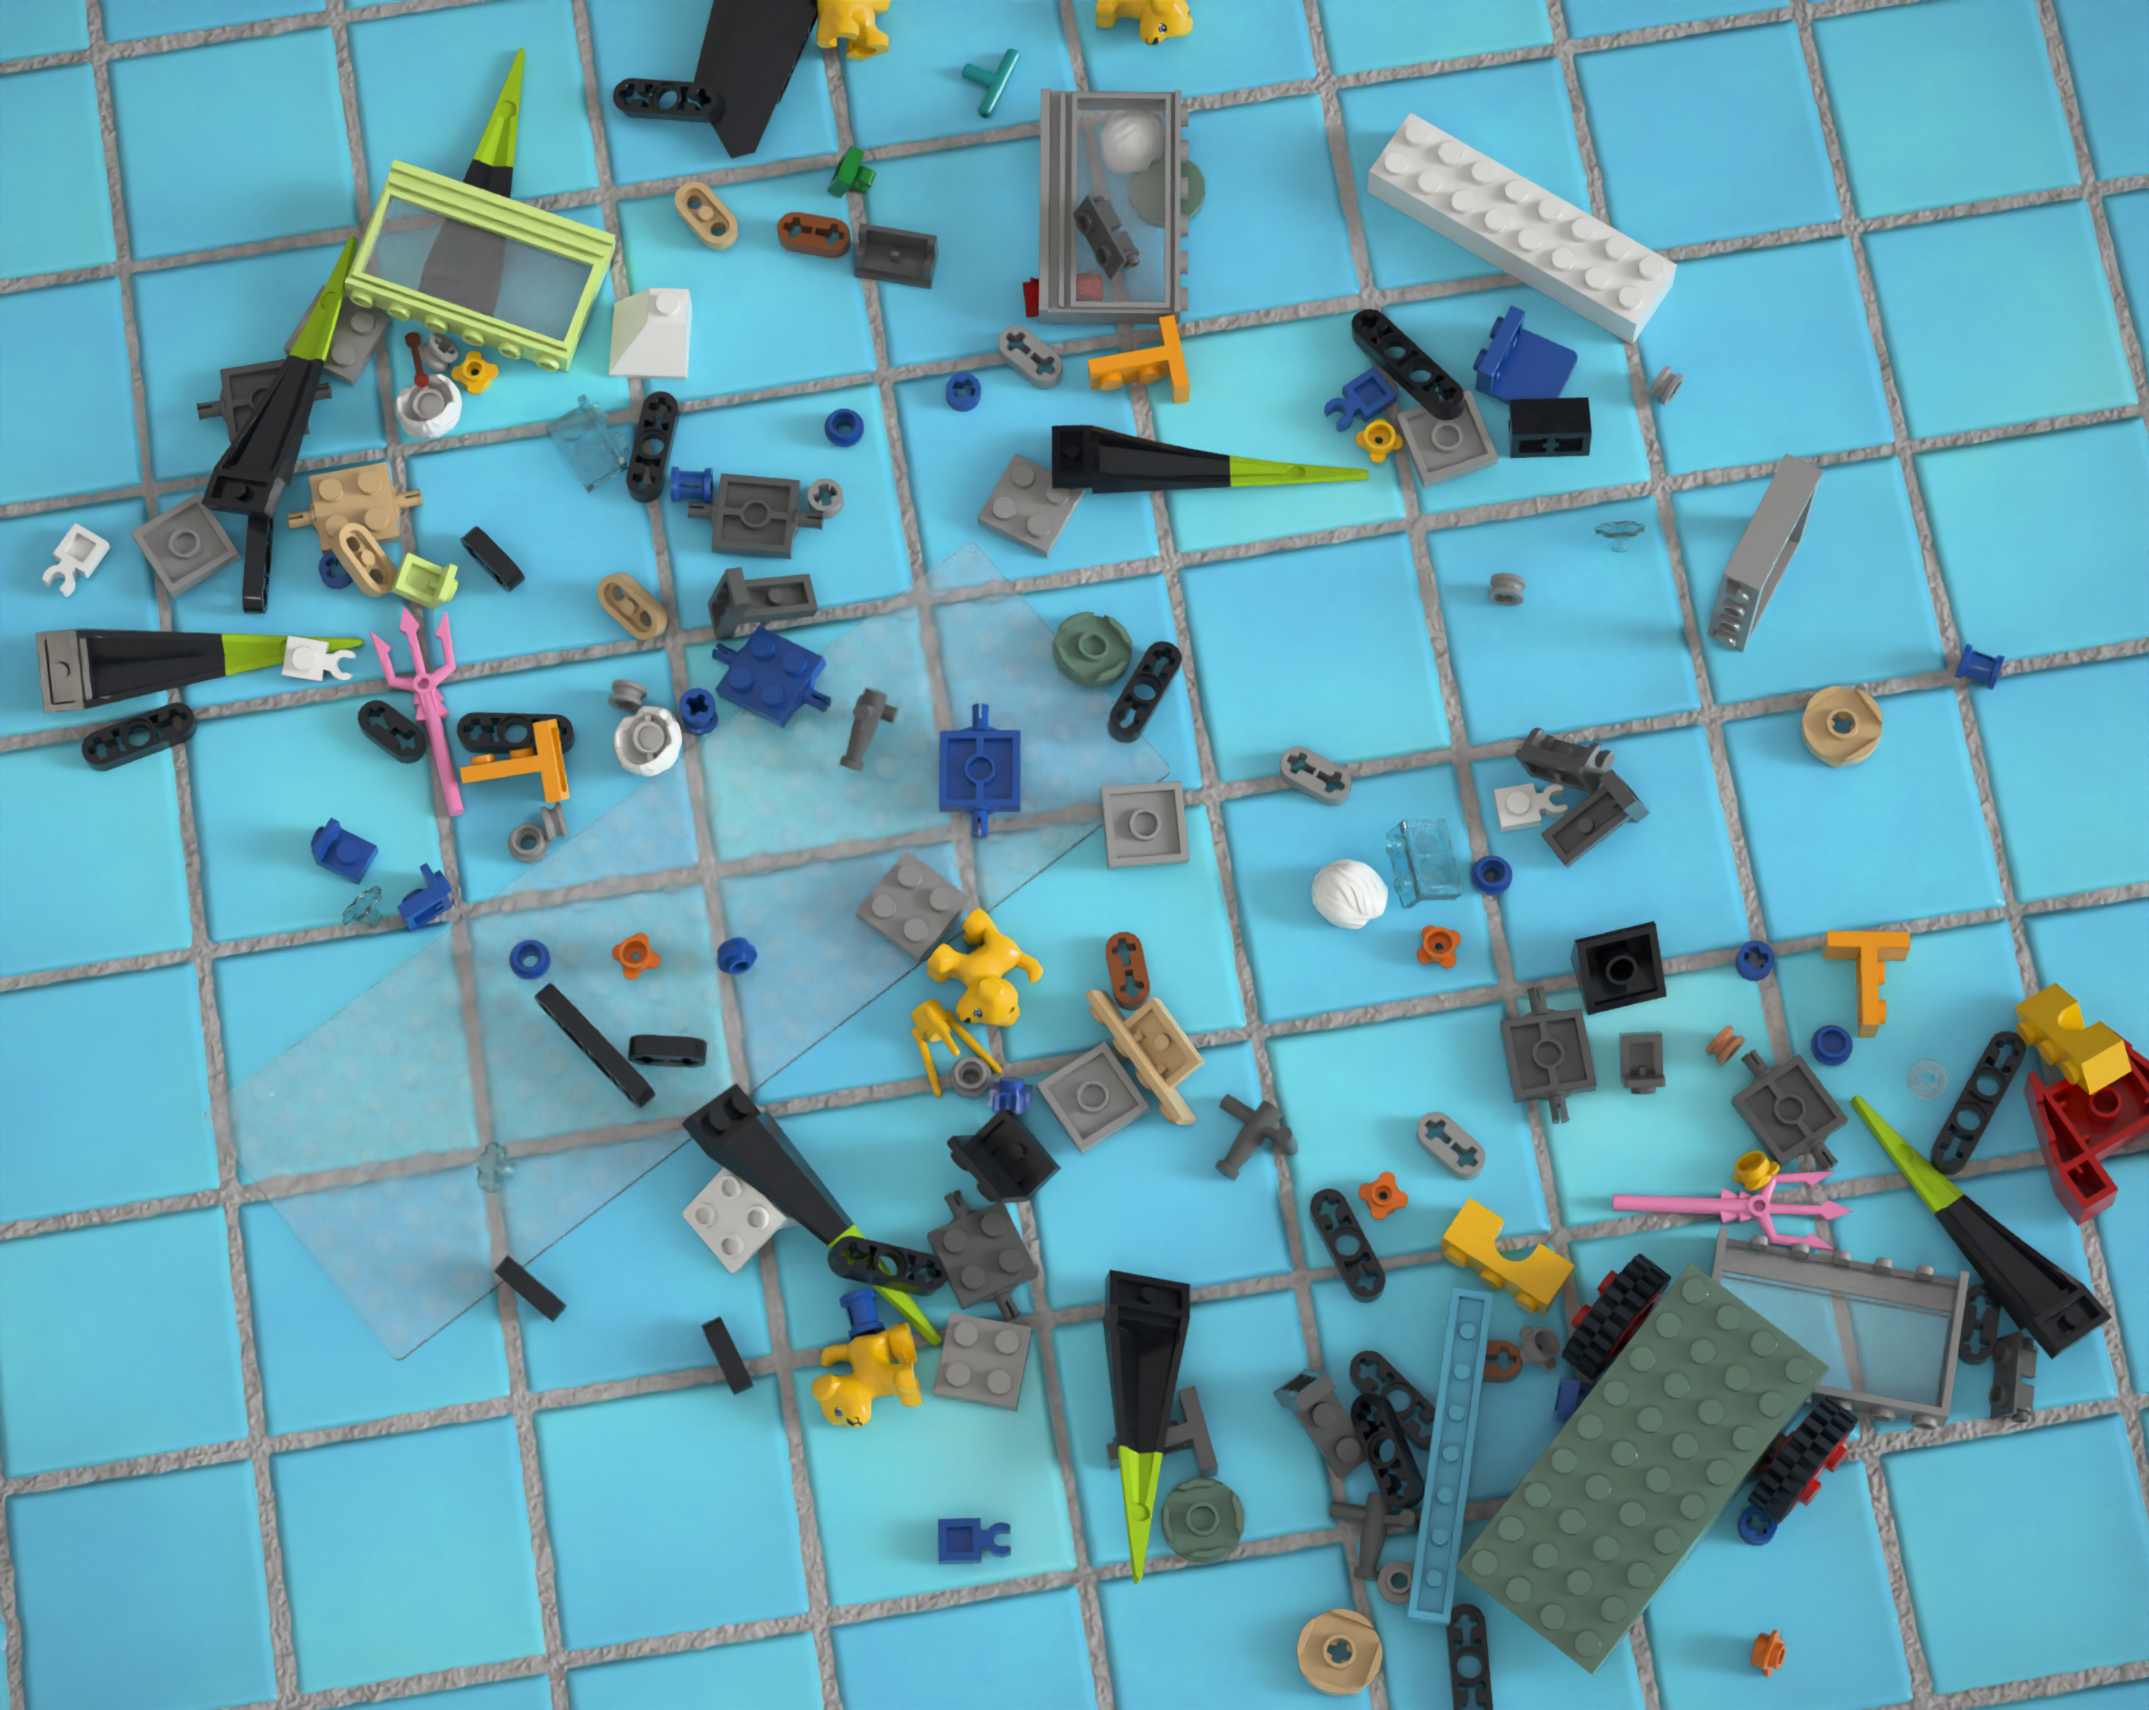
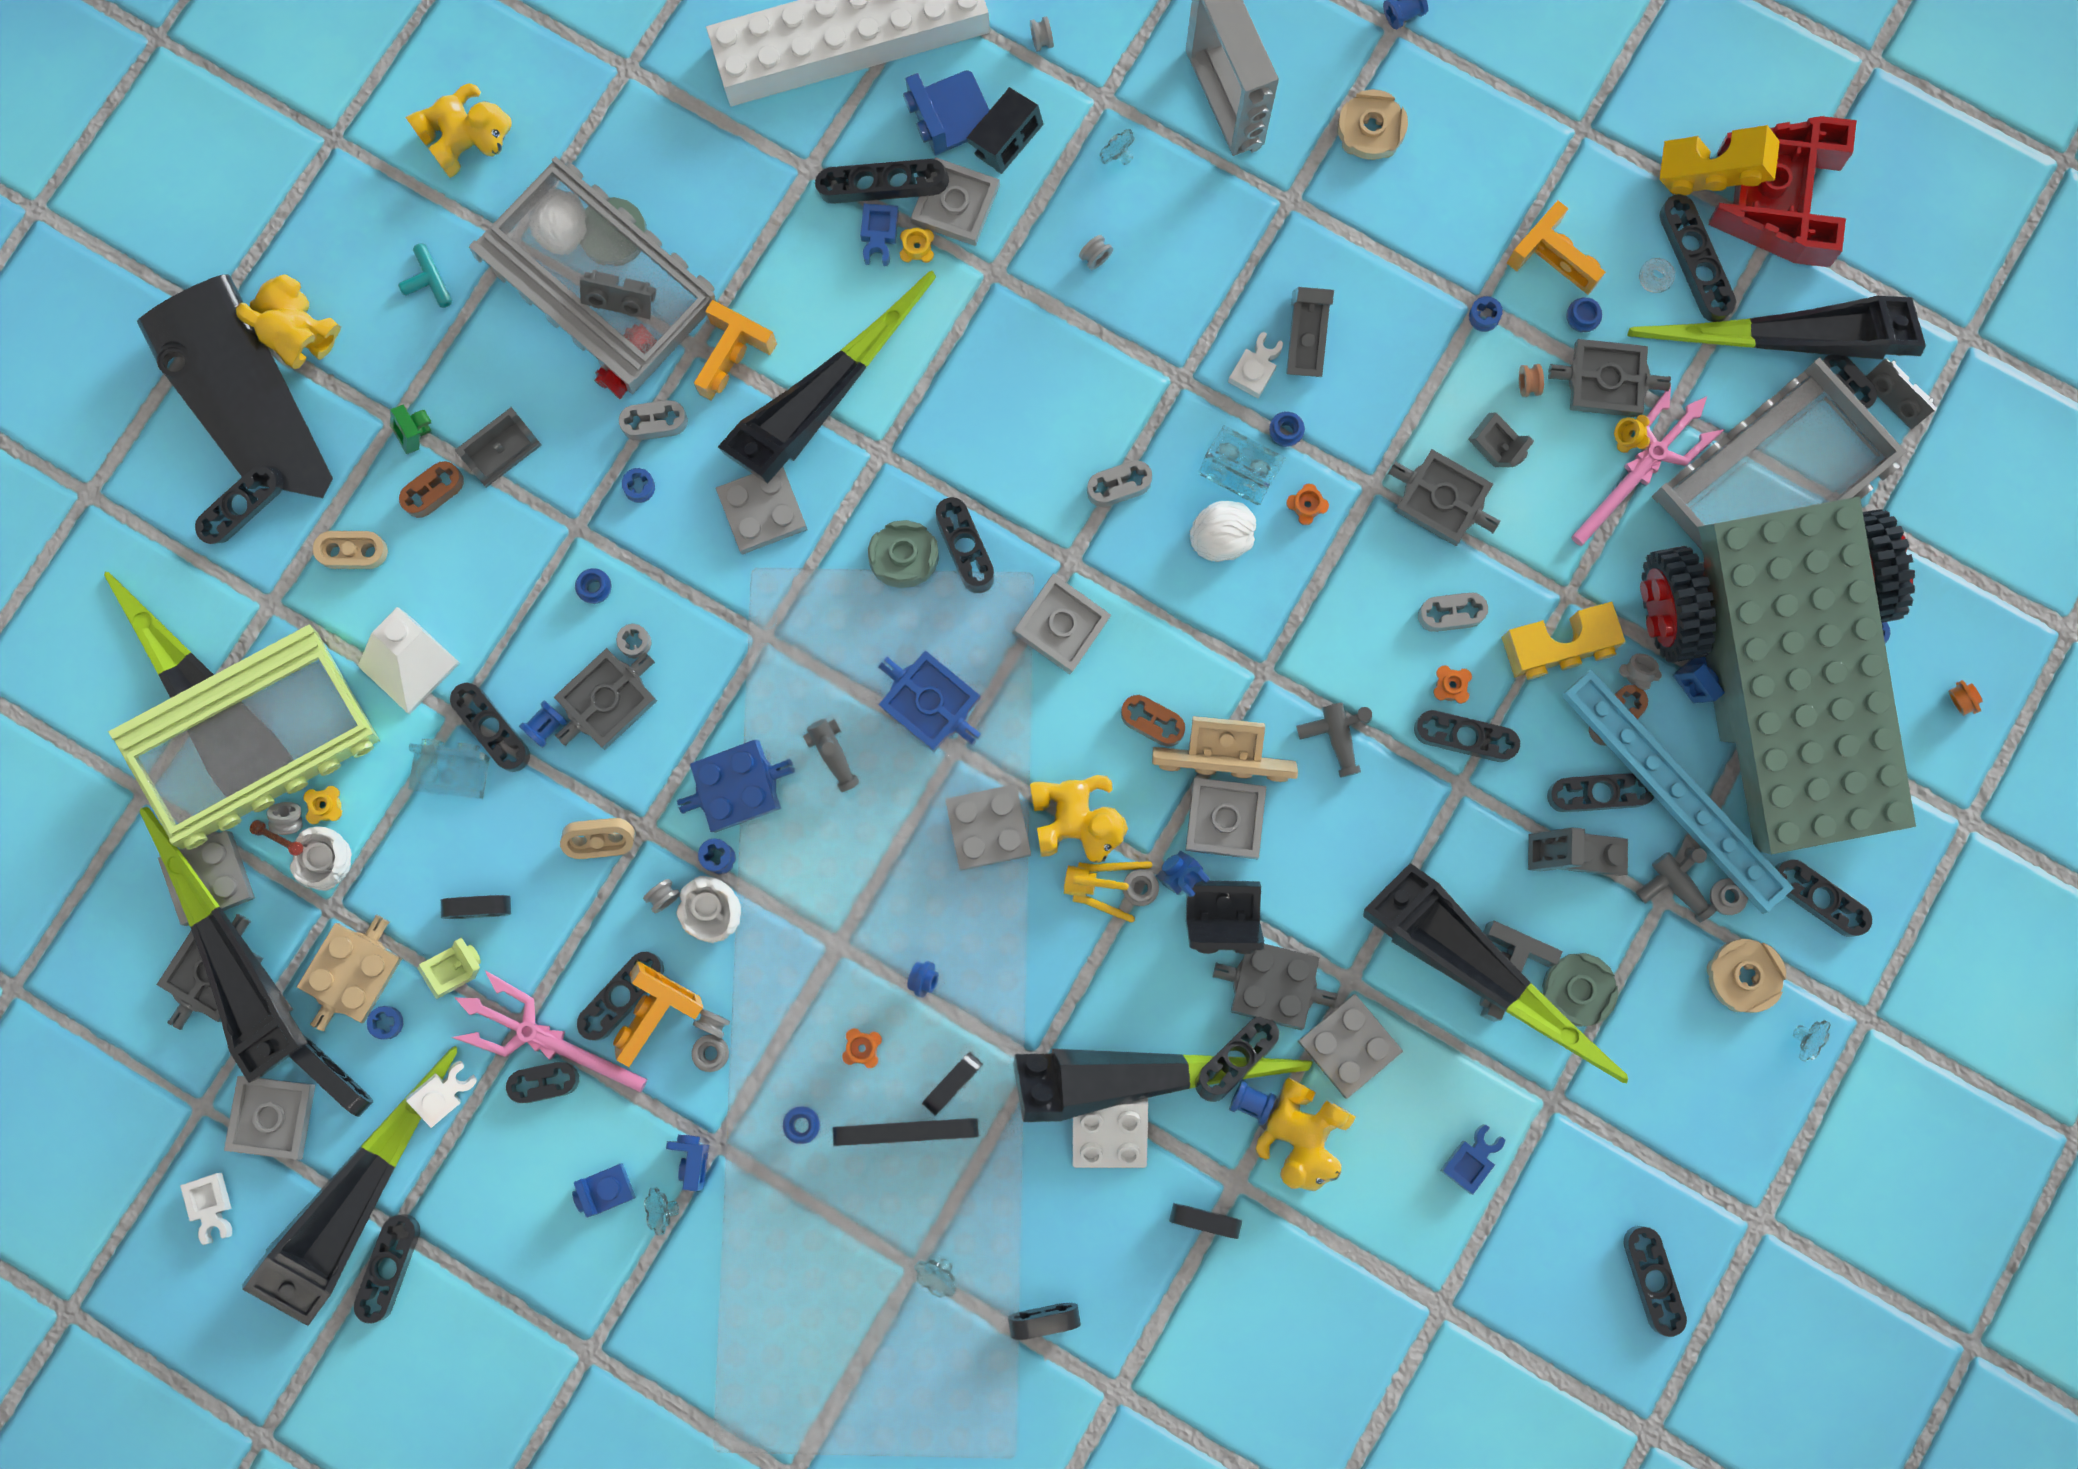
camera: 50 degrees left, 10 degrees up
(364, 559) = (395, 999): tan plate -> none
(758, 600) = (671, 749): dark grey bracket -> none
(1371, 1441) = (1647, 844): black beam -> none
(1564, 761) = (1253, 315): dark grey hinge -> none
(1619, 968) = (1424, 403): black slope -> none

